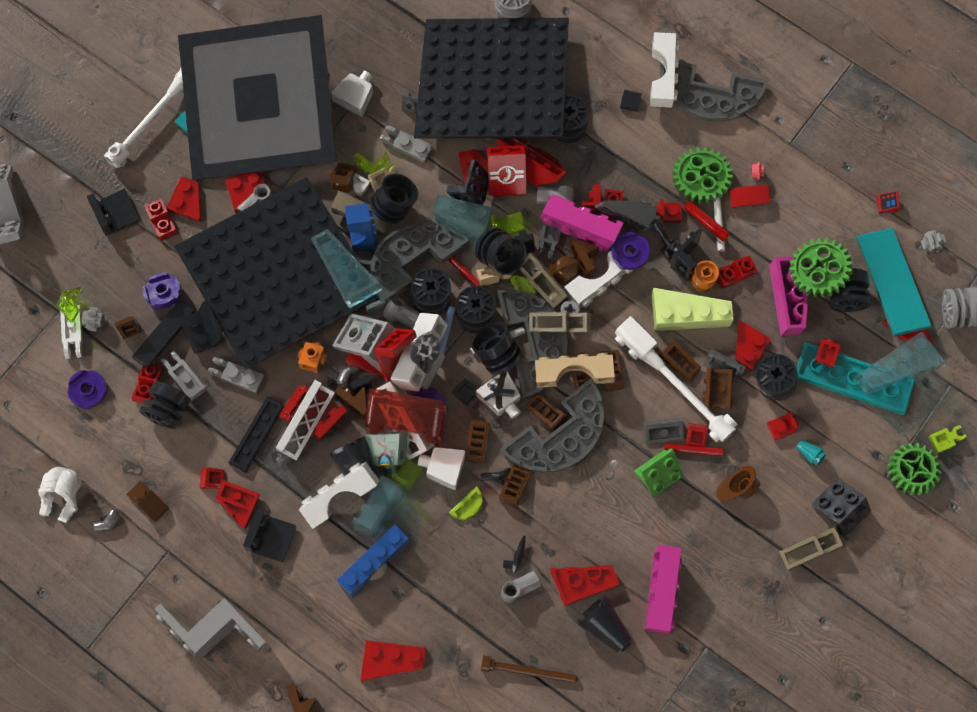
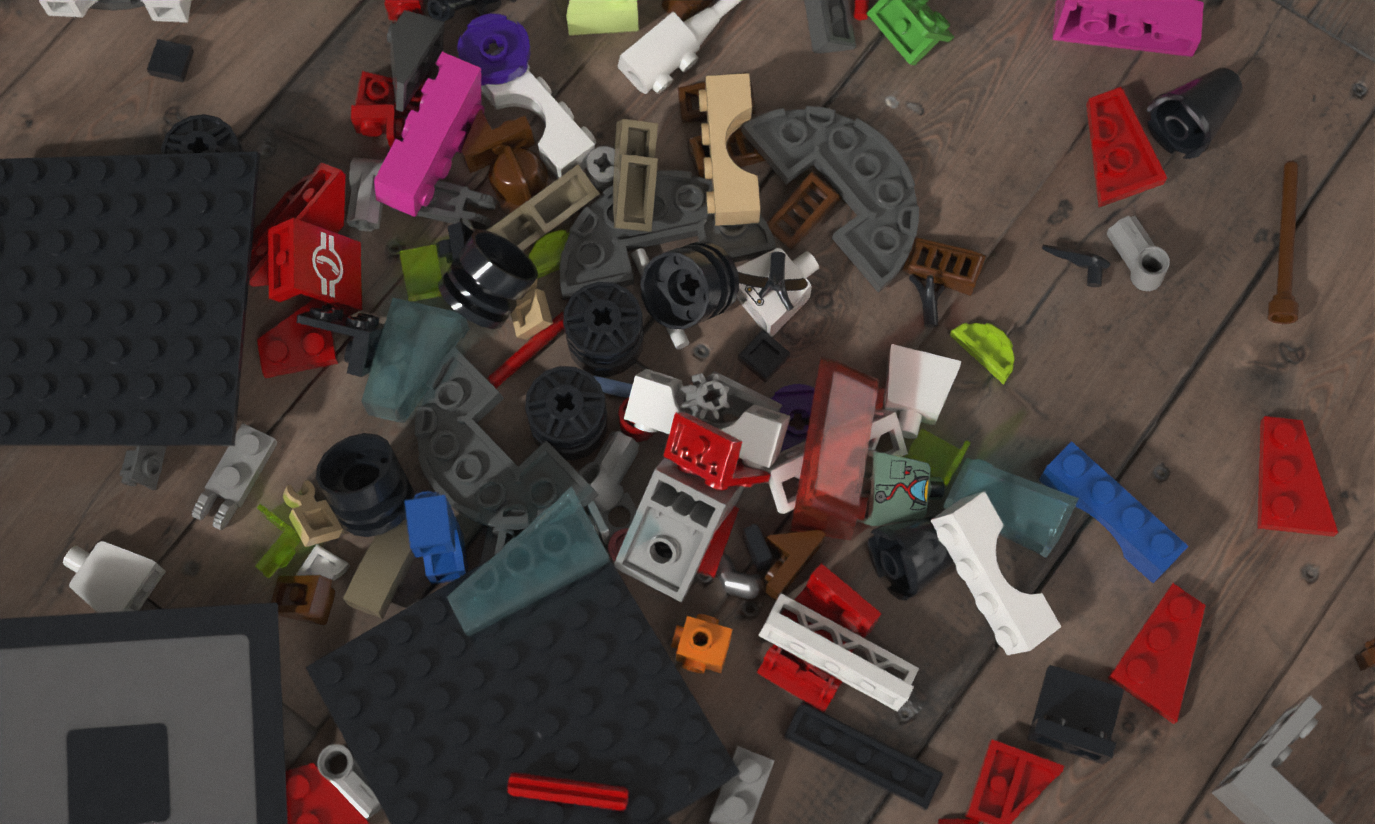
camera: 90 degrees left, 0 degrees up
(238, 290) = (568, 791): none -> red axle
(300, 583) = (1162, 653): none -> red wing
(479, 425) = (866, 319): reddish brown slope -> none

